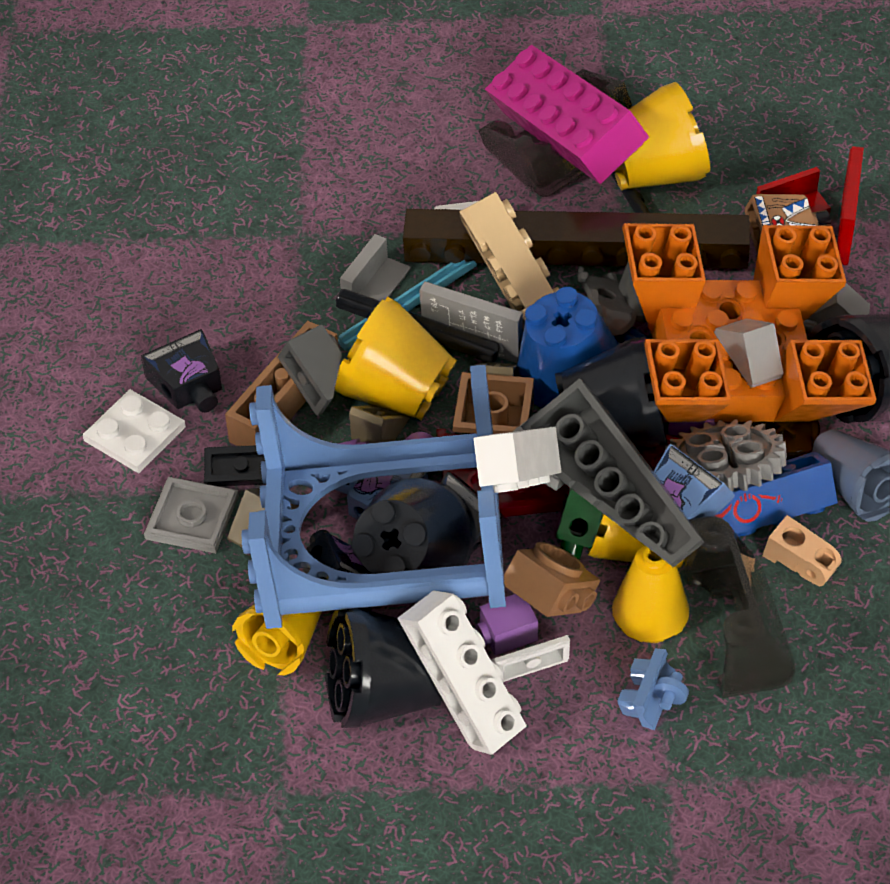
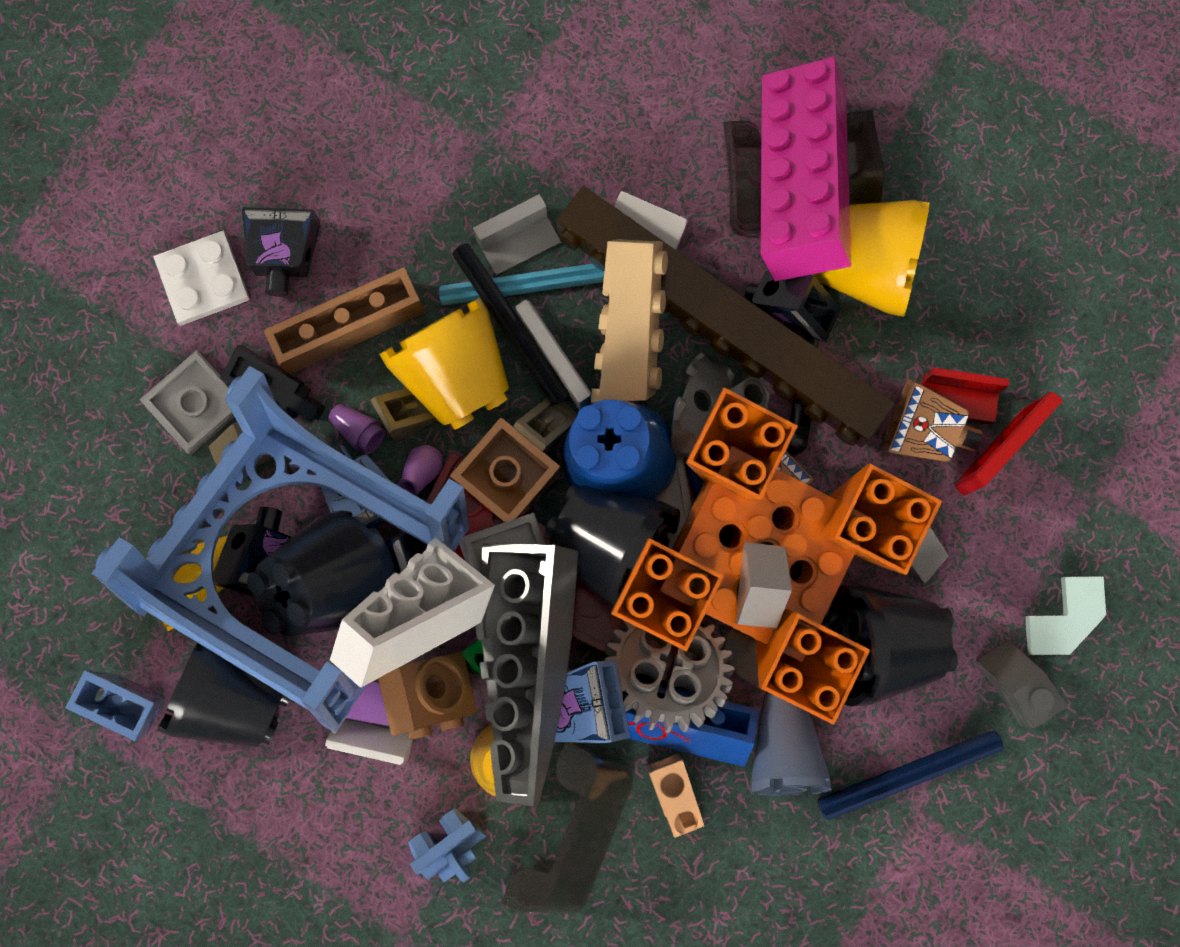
camera: 30 degrees right, 30 degrees up
(302, 717) = (122, 707): none -> medium blue torso
(313, 366) = (367, 331): dark grey slope -> none
(463, 671) = (269, 755): white brick -> none
(624, 193) = (796, 303): none -> black torso

